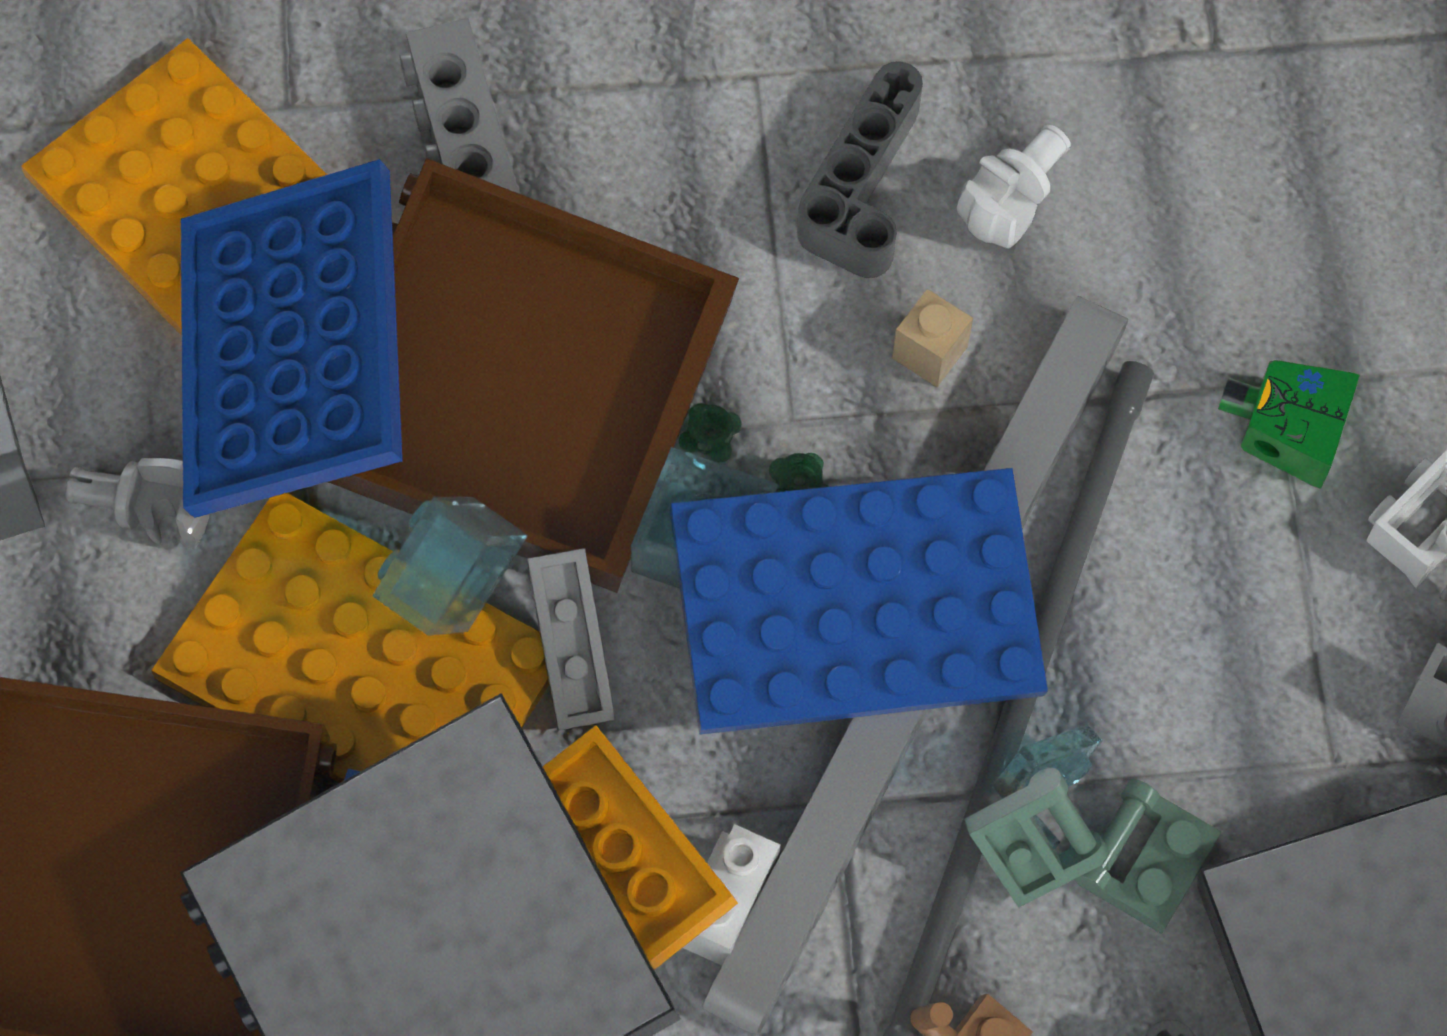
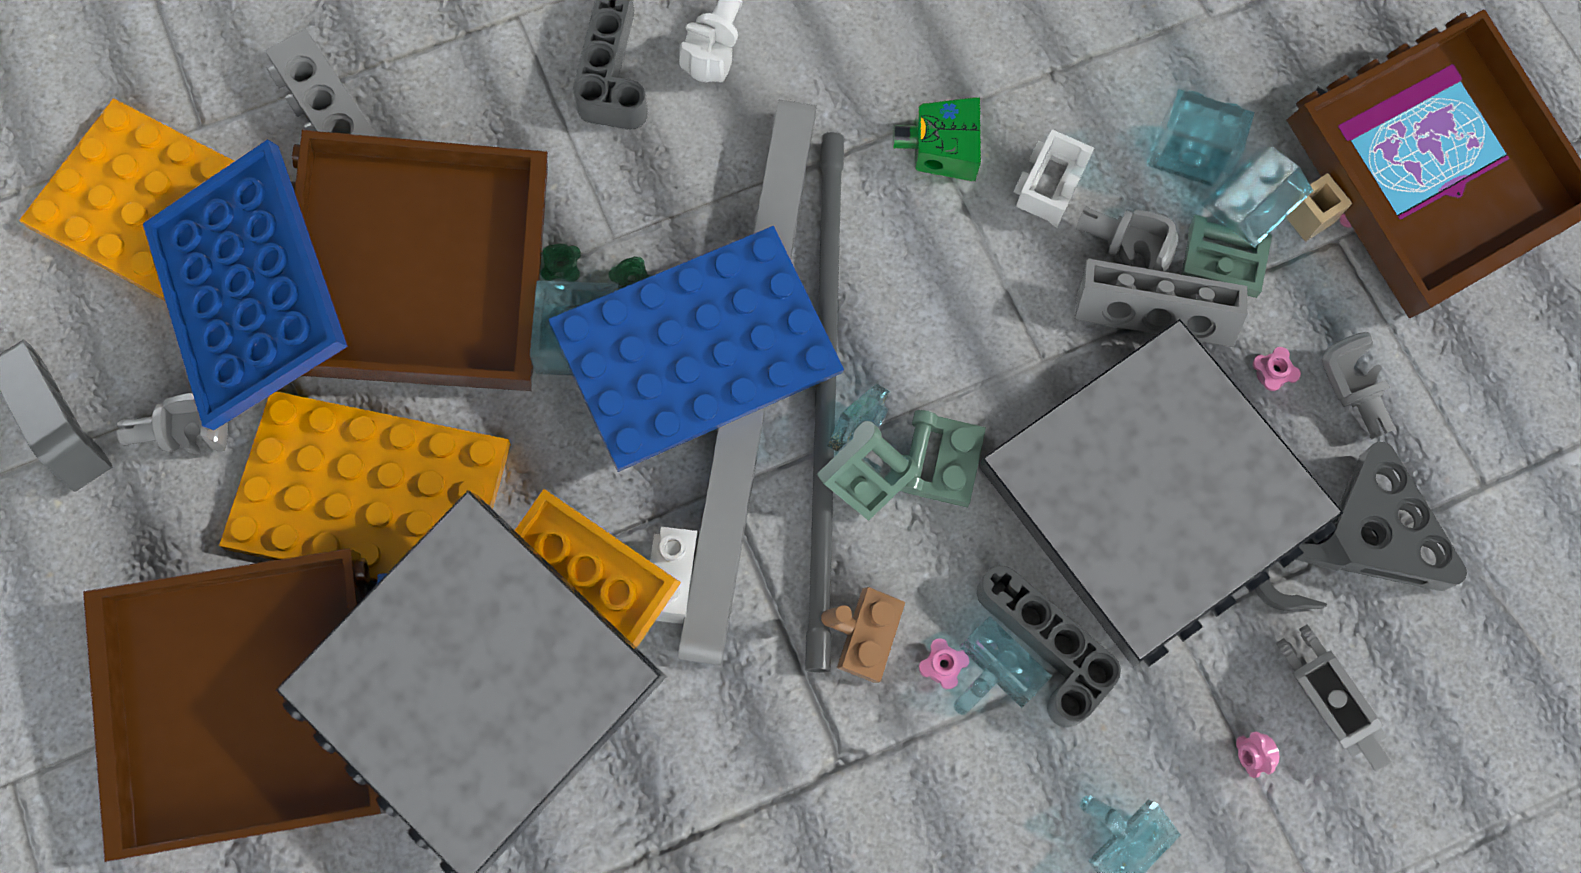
camera: 20 degrees left, 5 degrees up
(448, 564) = (404, 409): clear light blue brick -> none
(571, 639) = (508, 433): light grey plate -> none
(932, 337) = (690, 155): tan brick -> none

